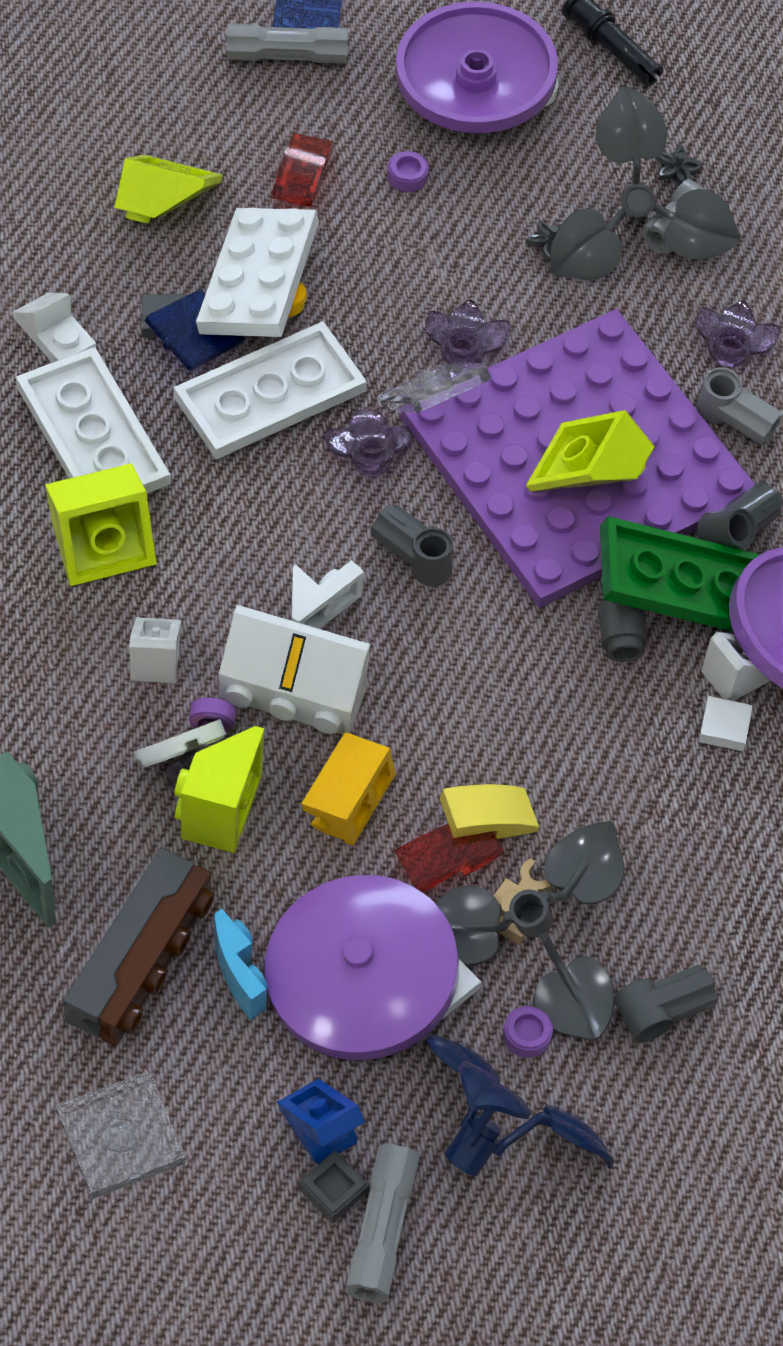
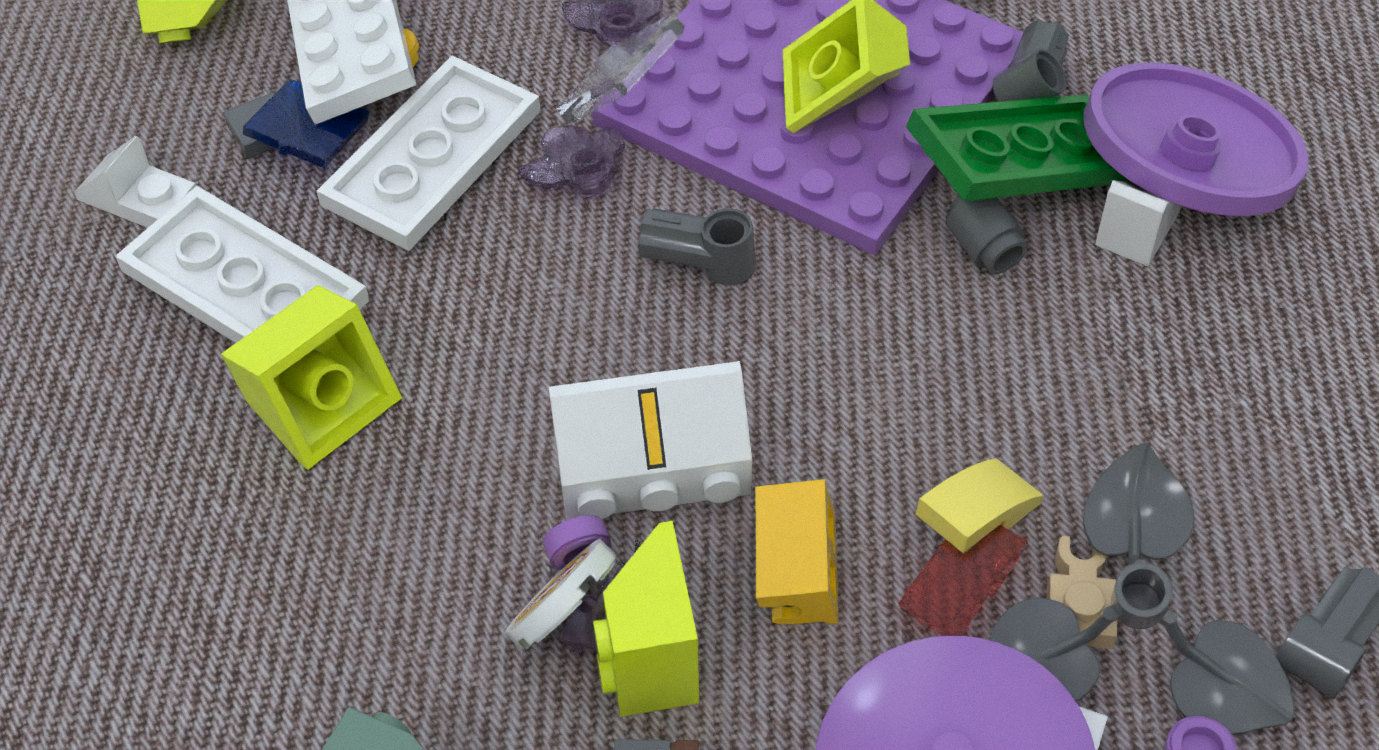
camera: 20 degrees left, 5 degrees down
(154, 650) = (460, 497): white slope -> none
(320, 603) = (629, 347): white slope -> none
(725, 723) = (1165, 285): white tile -> none

